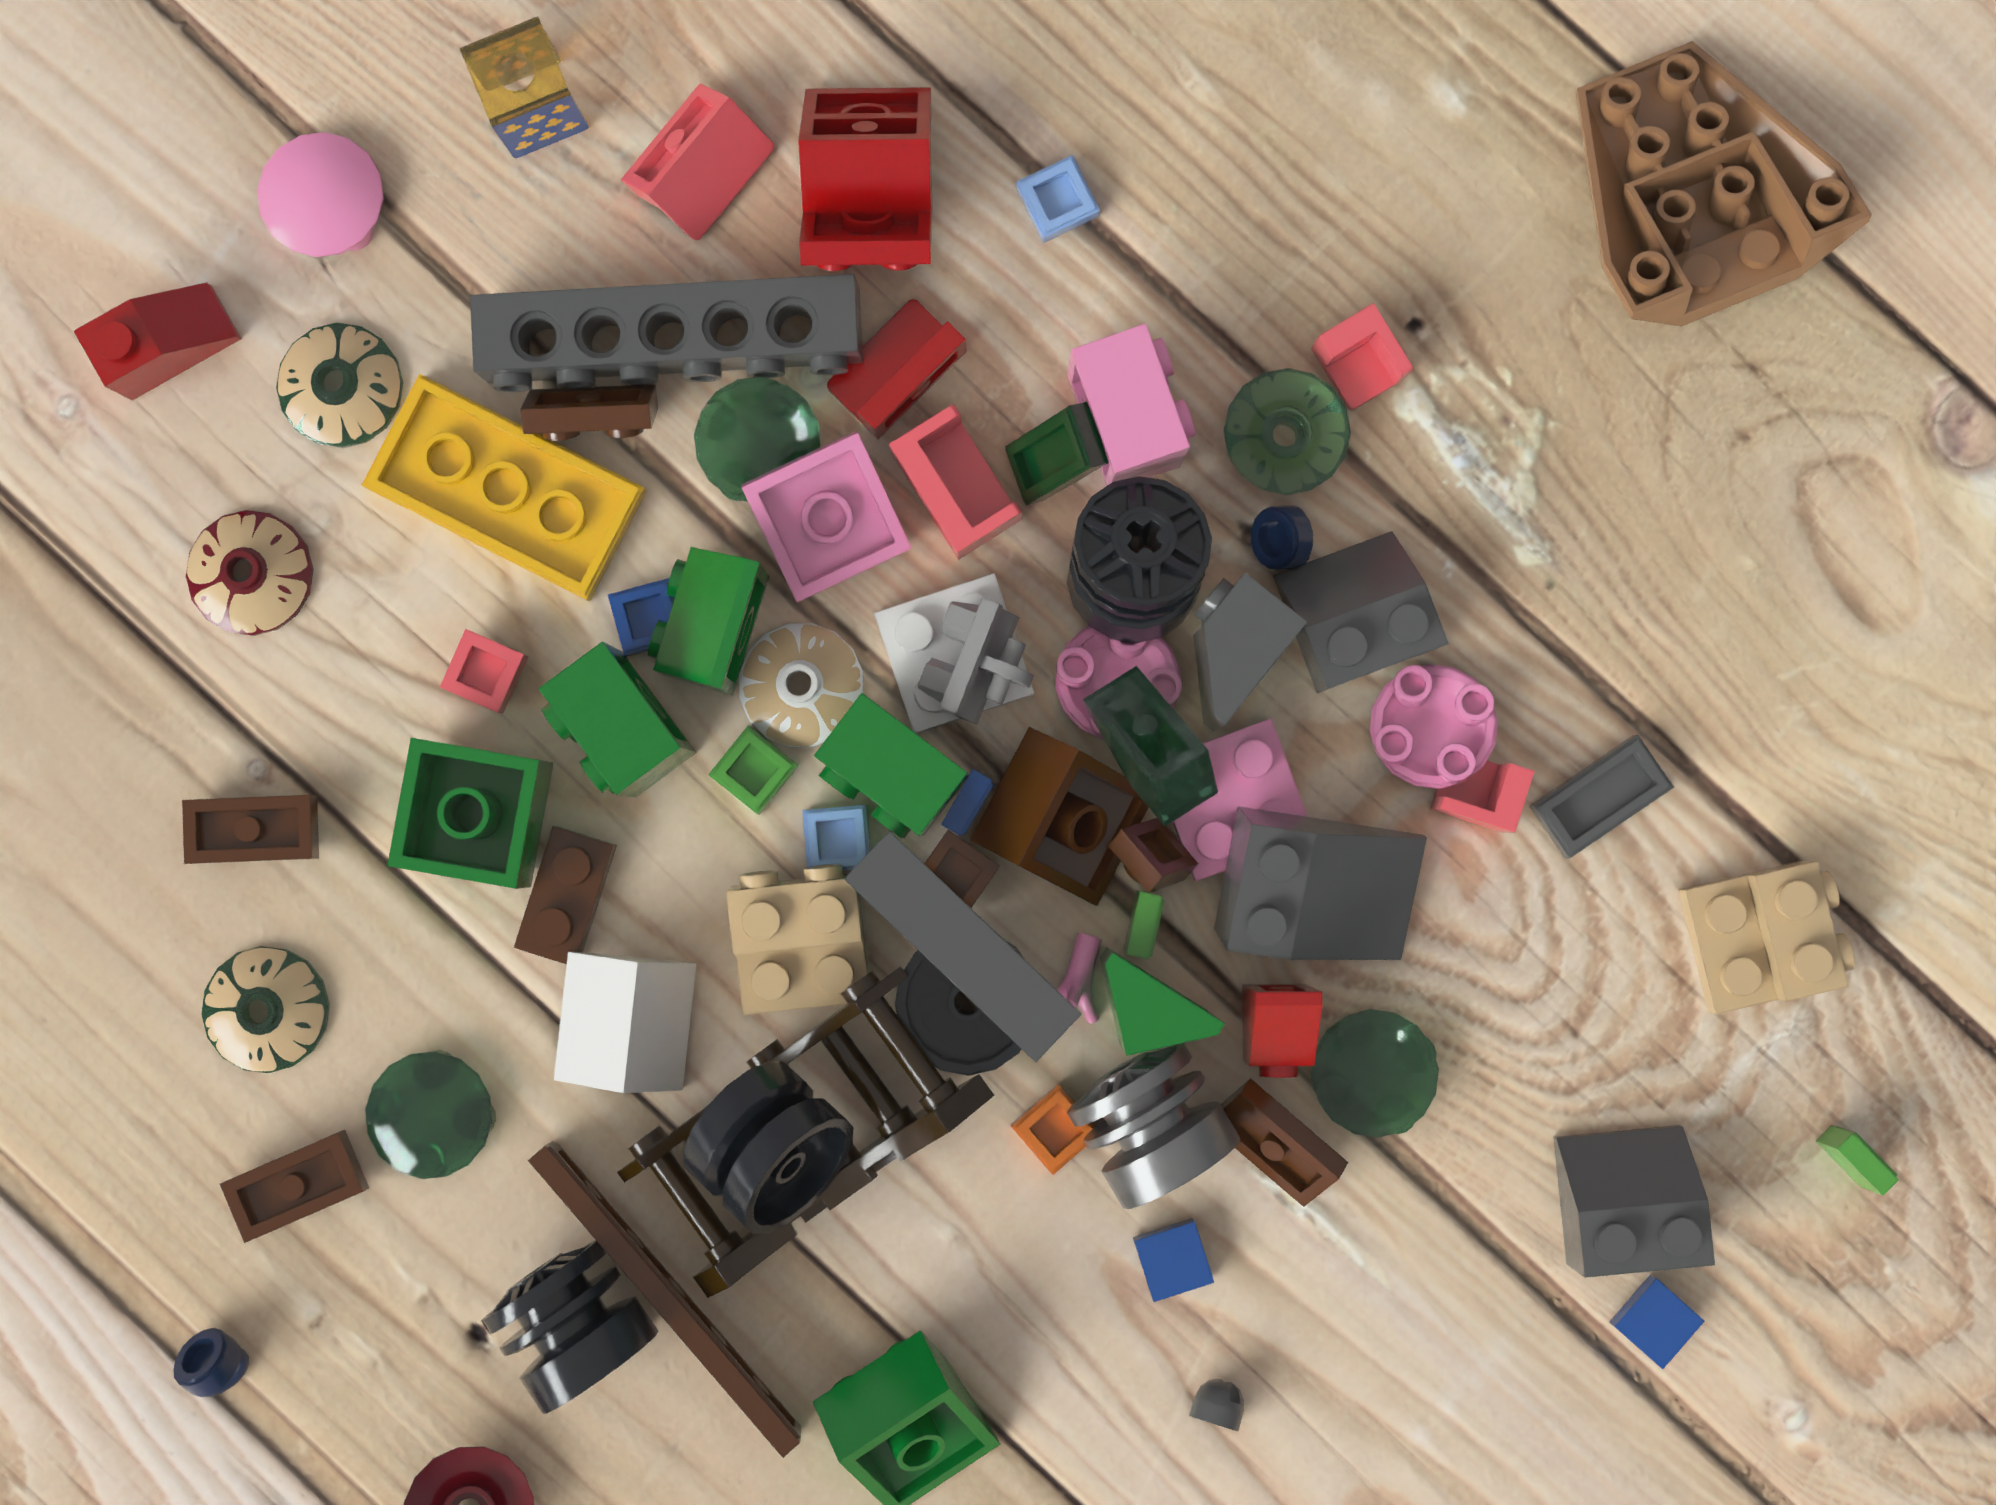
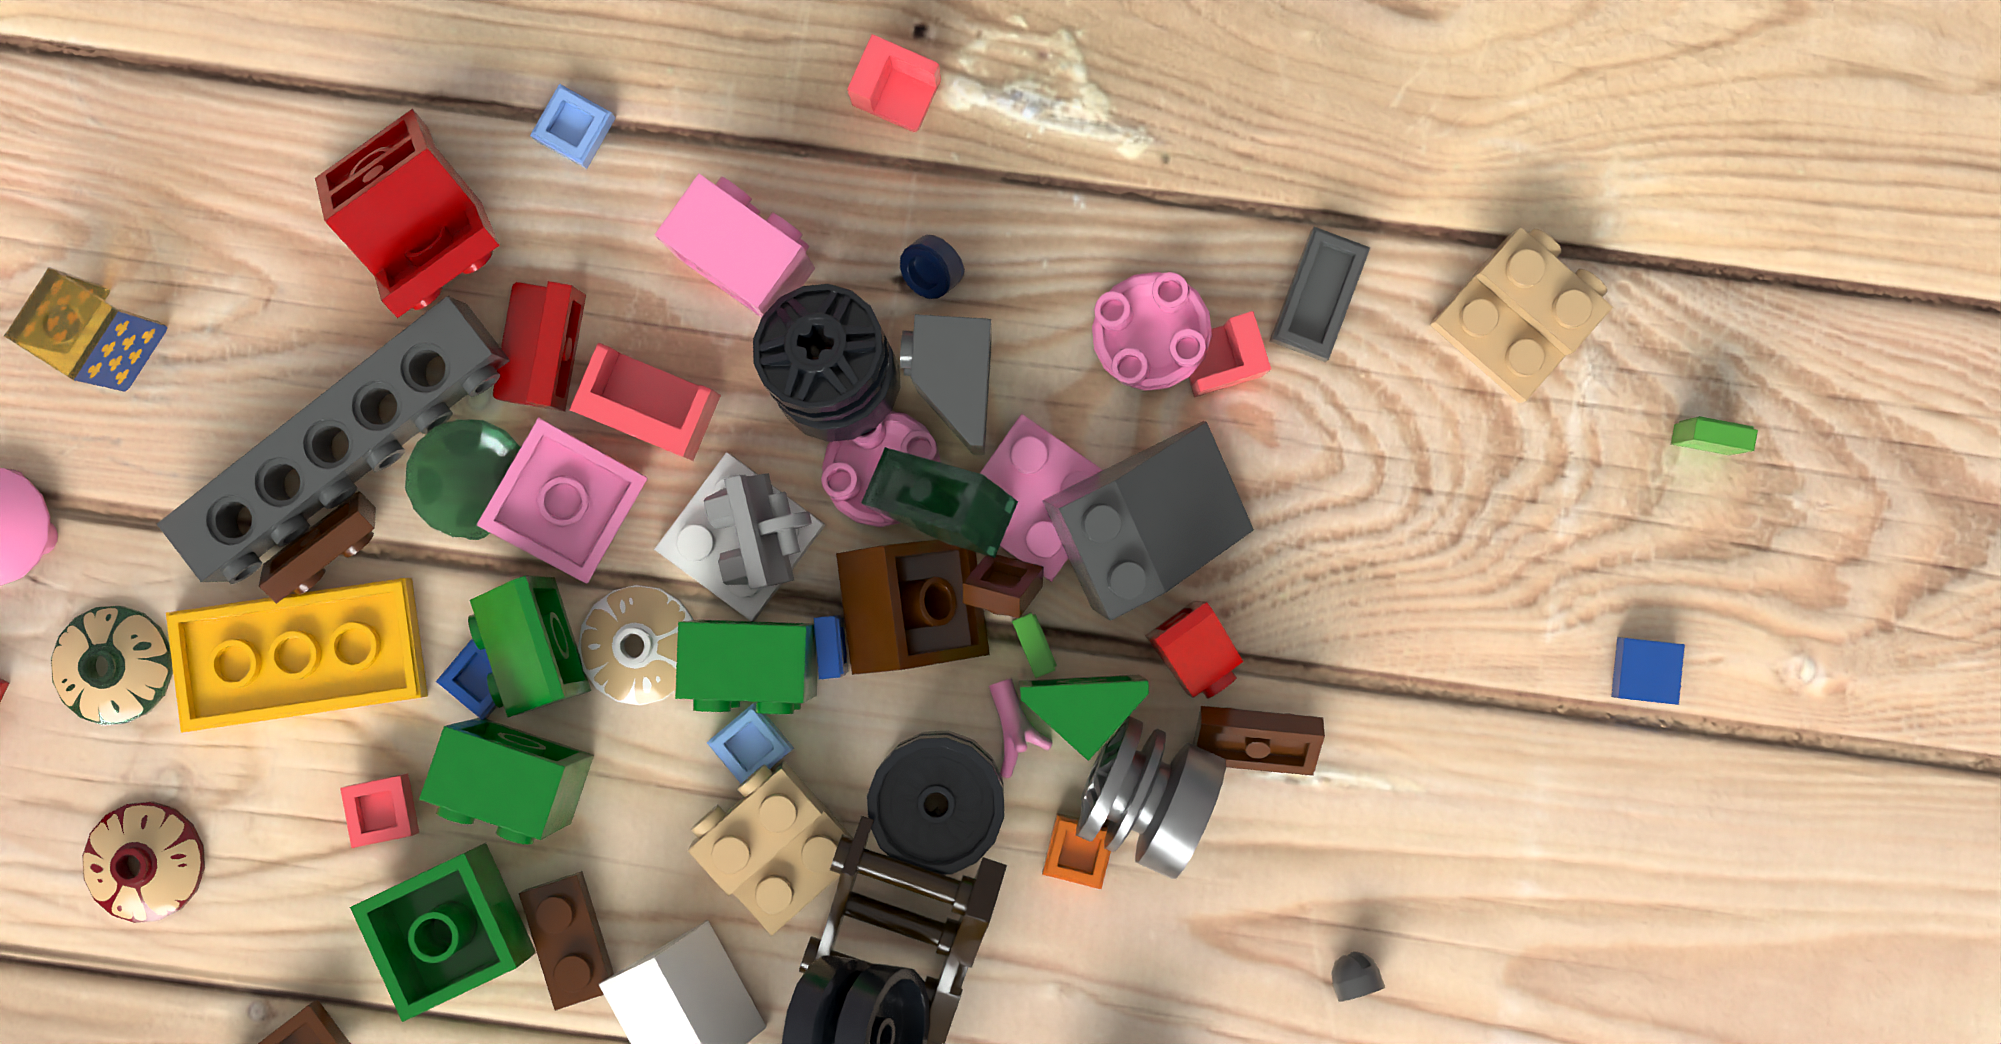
camera: 30 degrees left, 0 degrees up
(699, 161) = (271, 292): coral panel -> none
(753, 770) = (647, 737): bright green tile -> none
(961, 867) = (860, 708): reddish brown plate -> none
(962, 946) = (899, 765): dark grey tile -> none
(1056, 453) = (706, 324): dark green tile -> none
(1173, 1260) = (1241, 888): blue tile -> none
(1305, 406) = (868, 154): clear green dish -> none
(1361, 611) = (1032, 282): dark grey slope -> none
(1375, 1073) = (1295, 632): clear green dish -> none
(1632, 1202) = (1564, 592): dark grey slope -> none

